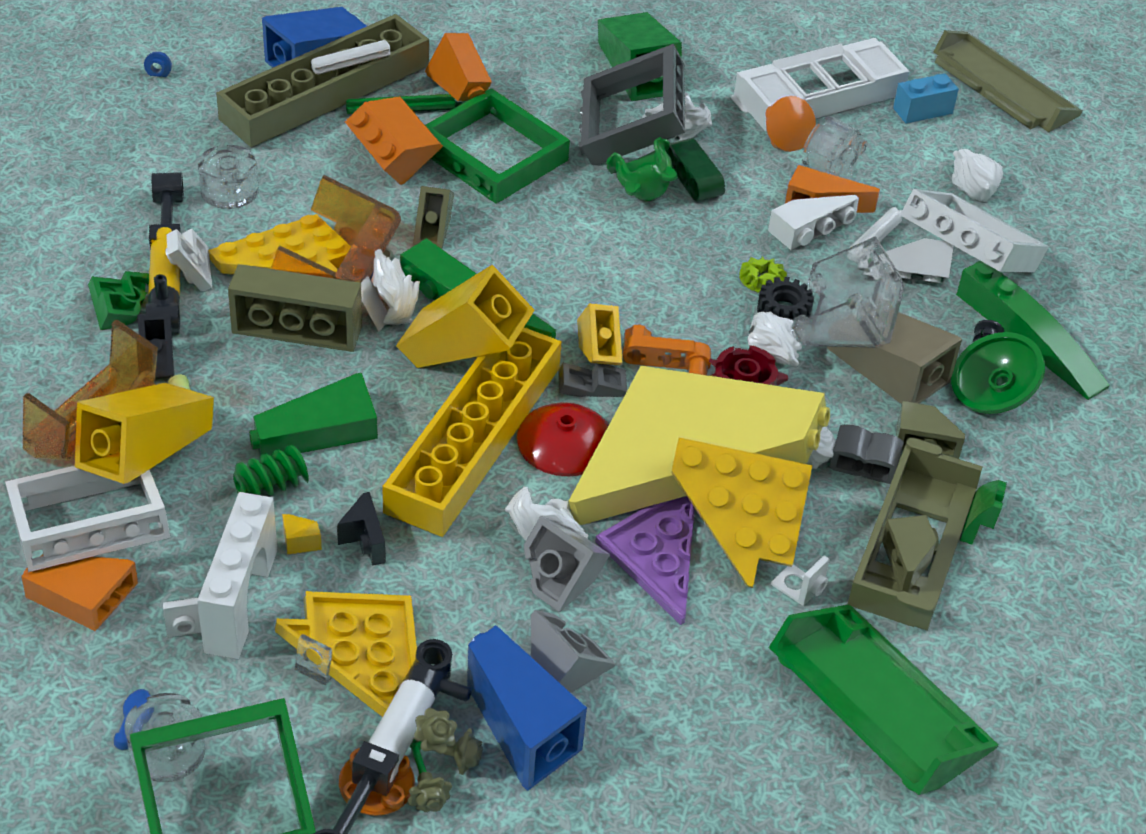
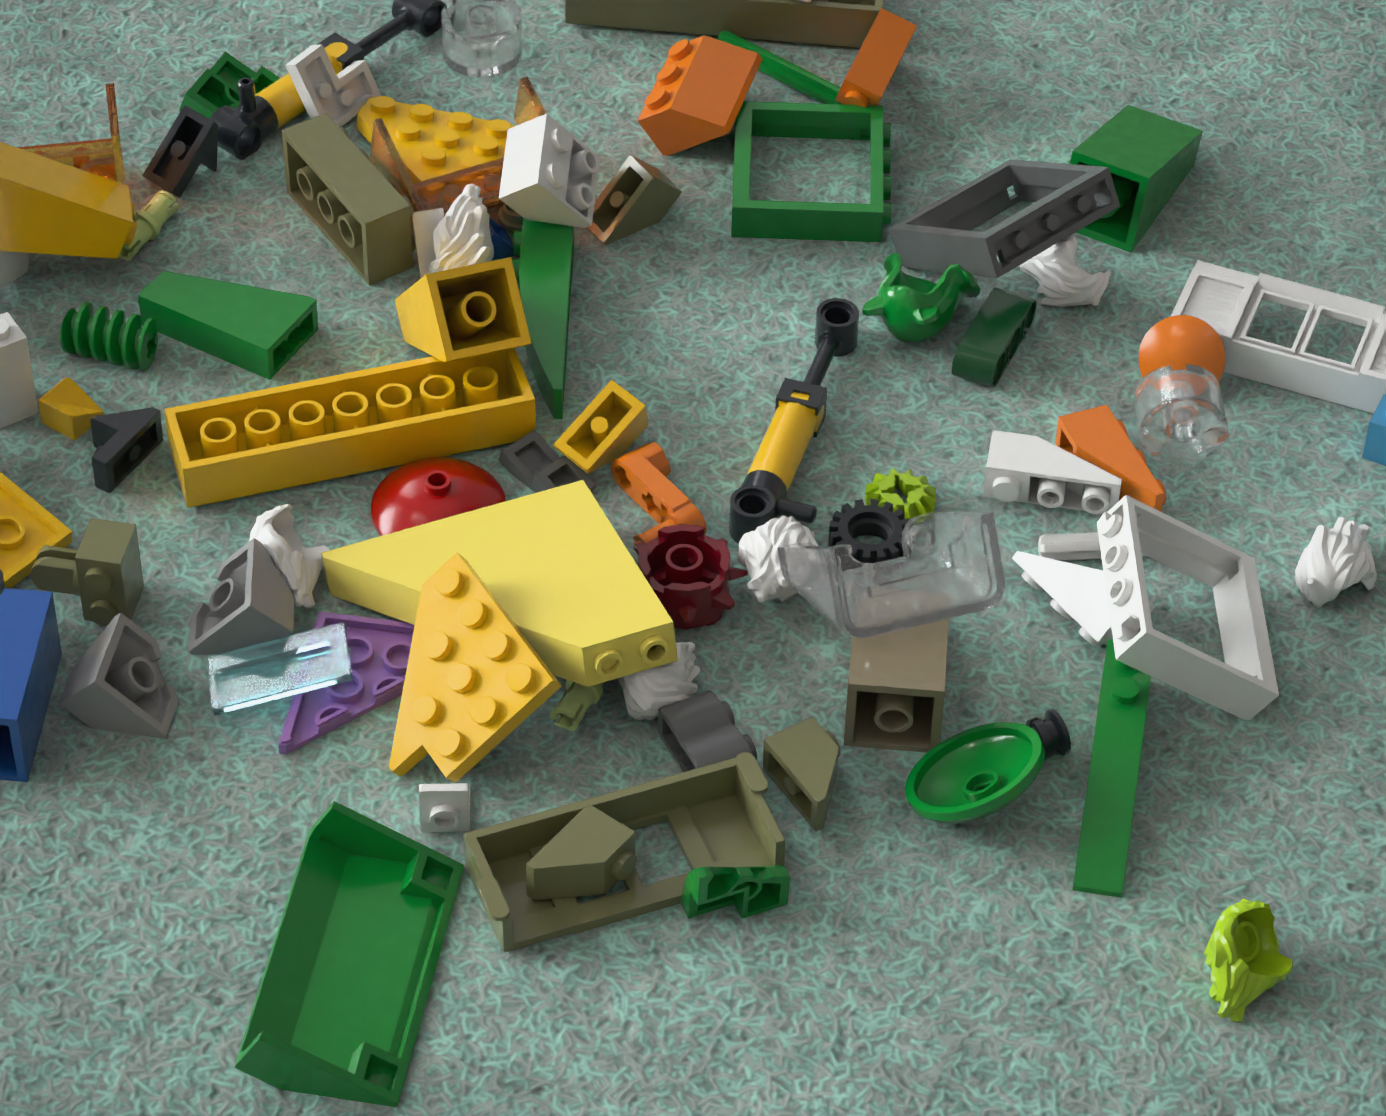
camera: 50 degrees right, 0 degrees up
(403, 219) = (549, 174): none -> white slope
(474, 602) = (102, 570): none -> olive brick
(629, 579) = (279, 668): none -> clear light blue piece
(667, 266) = (797, 419): none -> black piece

